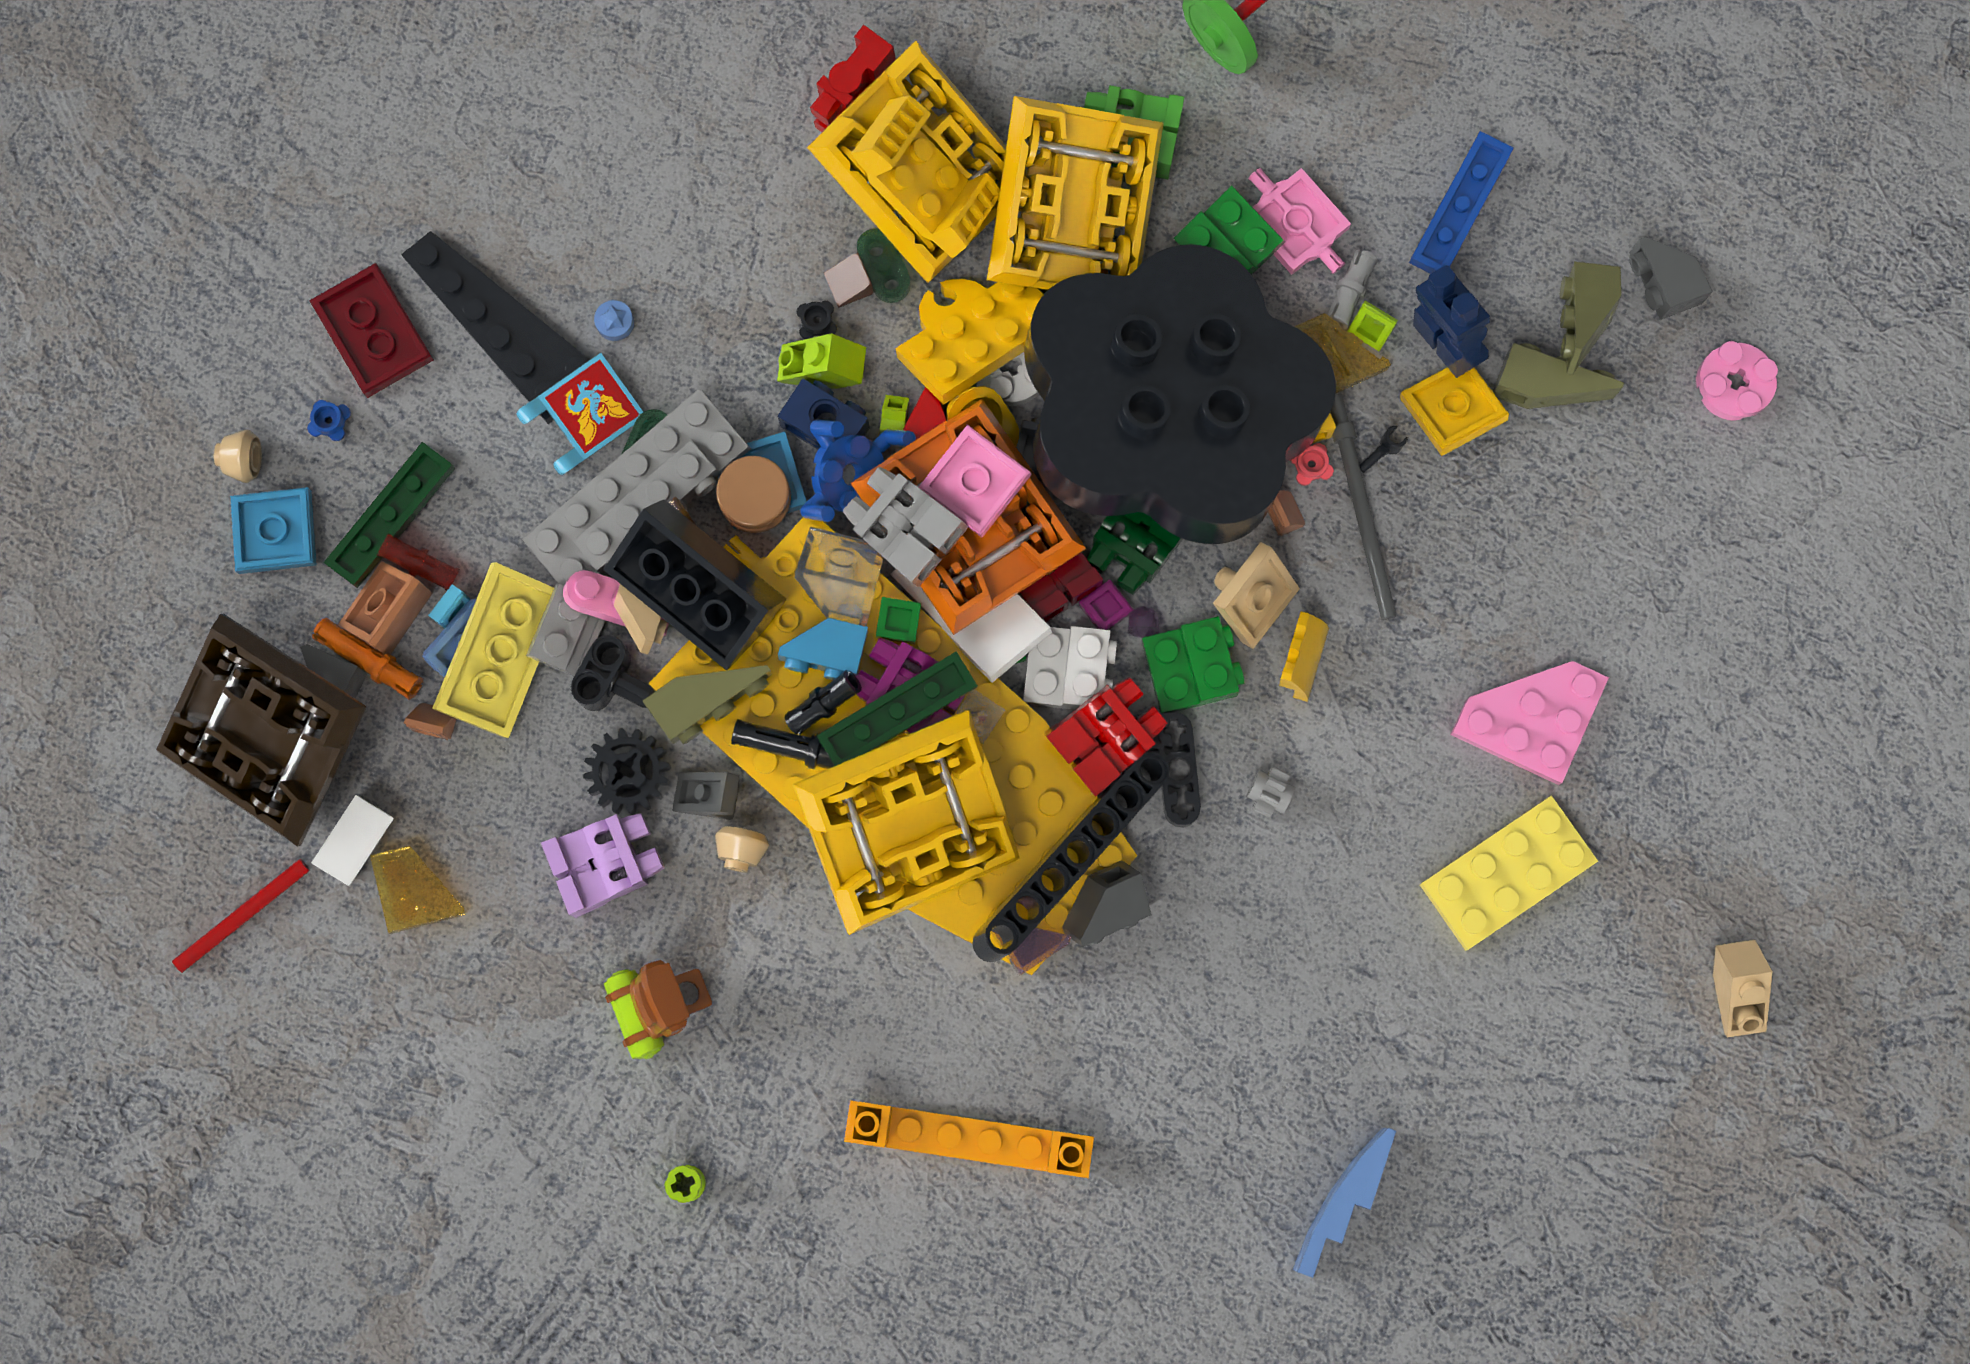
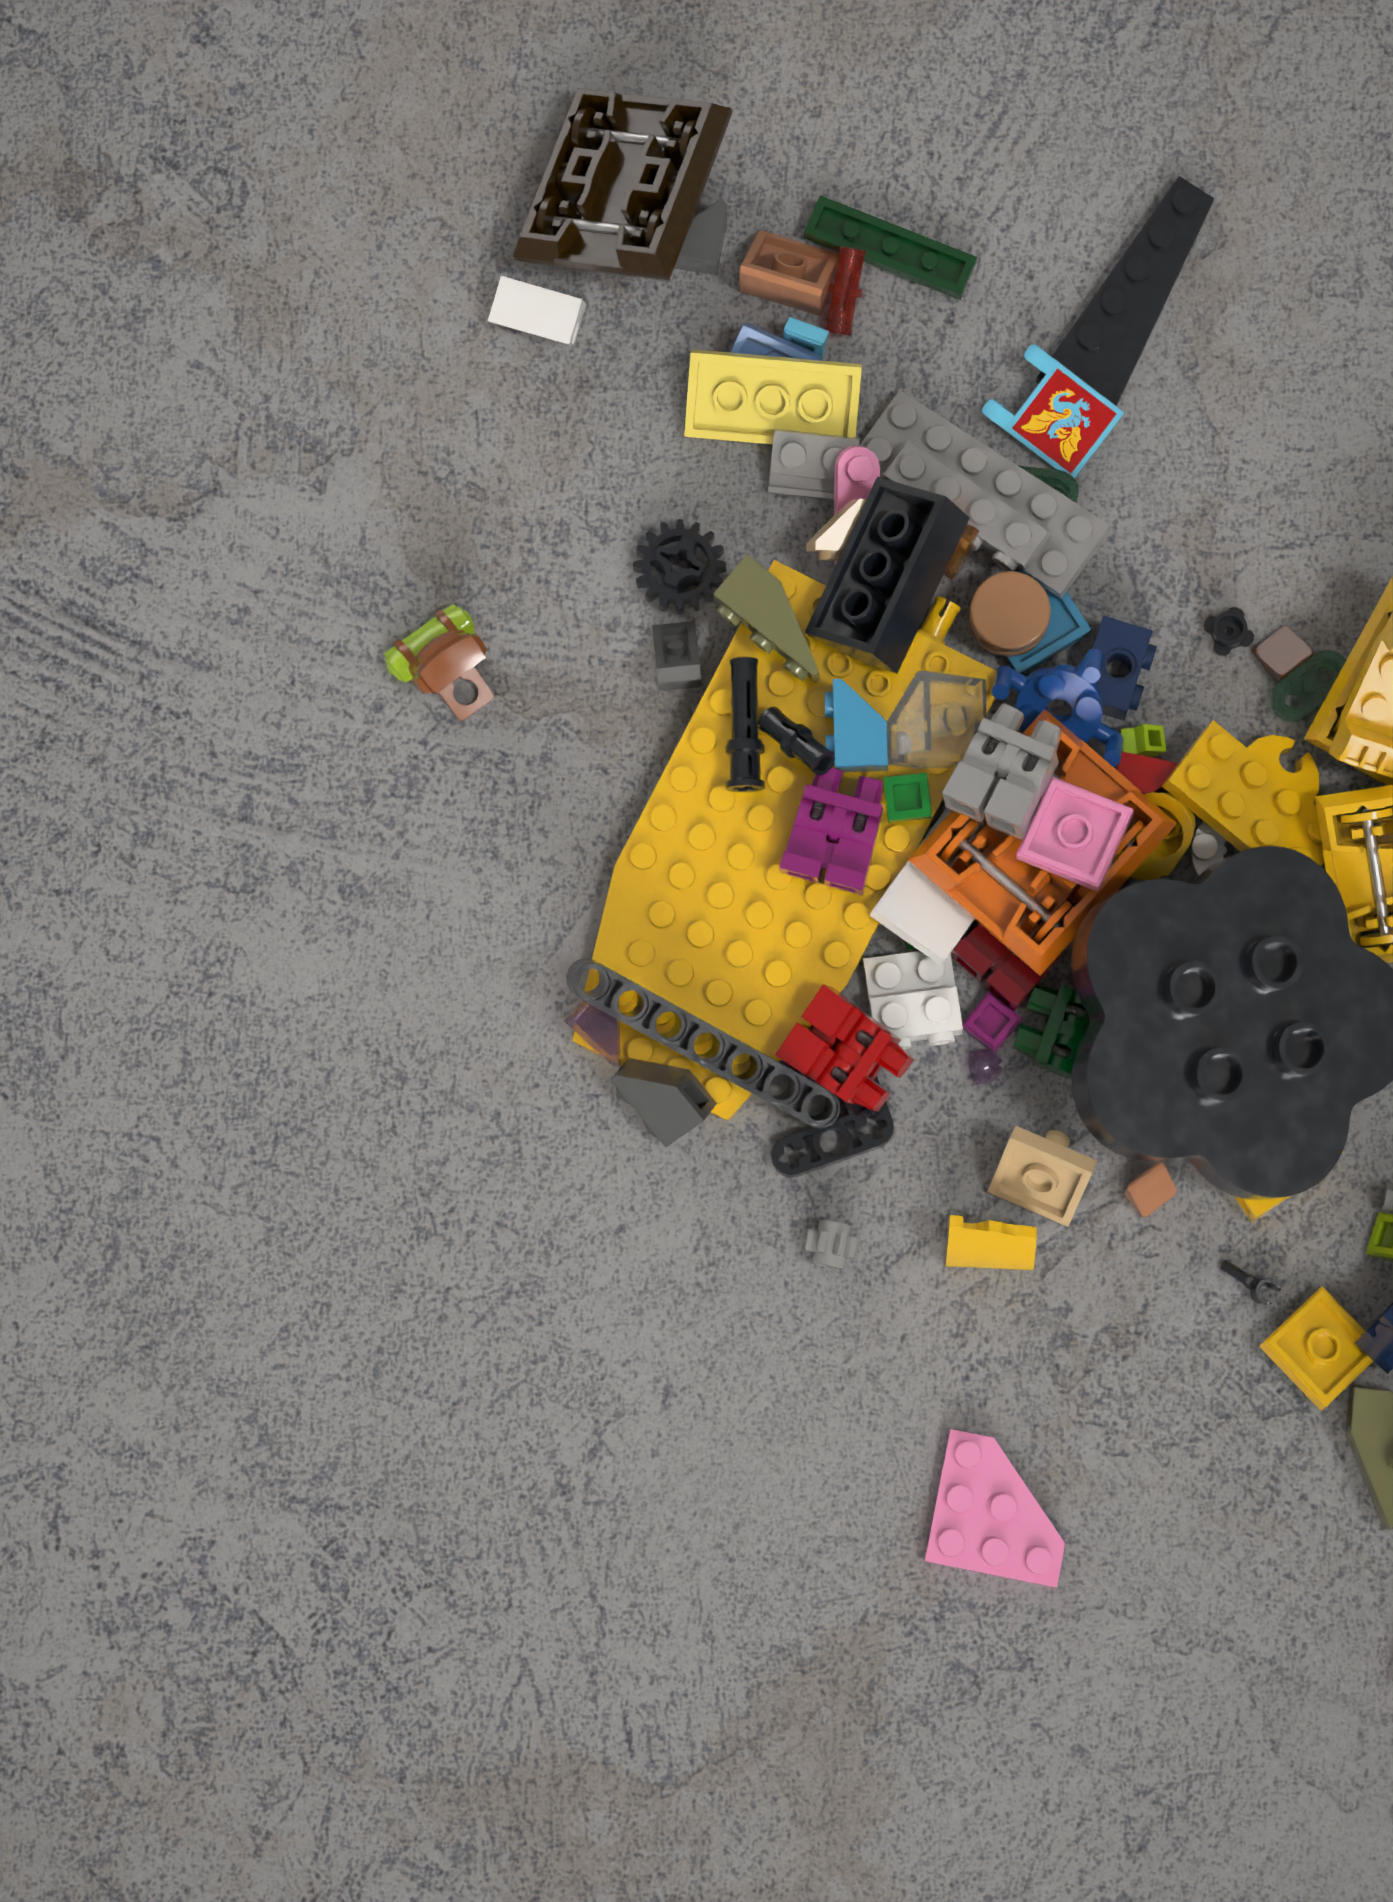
camera: 80 degrees right, 0 degrees up
(239, 456) = (911, 77): tan cone -> none
(240, 915) = (433, 224): red bar -> none
(273, 530) = (841, 135): dark azure plate -> none
(324, 410) = (979, 144): blue plate -> none
(371, 330) = (1088, 170): dark red tile -> none
(380, 666) = (725, 286): orange pin -> none
(411, 891) = (499, 384): clear yellow wing -> none
(430, 722) = (678, 351): nougat slope -> none
(573, 855) = (579, 539): lavender hips -> none
(611, 677) = (773, 522): black beam -> none
(614, 320) = (1168, 418): medium blue tile -> none
(674, 1178) = (275, 731): lime bush -> none
(740, 848) = (628, 704): tan cone -> none
(822, 359) = (1180, 648): lime slope -> none
(898, 710) = (803, 817): dark green plate -> none
(905, 820) = (692, 857): yellow piece -> none
(969, 1139) = (385, 1014): light orange slope -> none
(983, 713) = (828, 909): clear tile -> none
(1192, 665) = (950, 1129): green plate -> none
(1322, 469) = (1211, 1219): coral plate -> none
(1344, 350) = (1344, 1203): clear yellow wing -> none
(1344, 436) = (1256, 1234): dark grey bar -> none
(1354, 1187) = (431, 1431): medium blue slope -> none
(1508, 873) = (812, 1525): light yellow plate -> none
(1742, 987) = (748, 1803): tan slope -> none

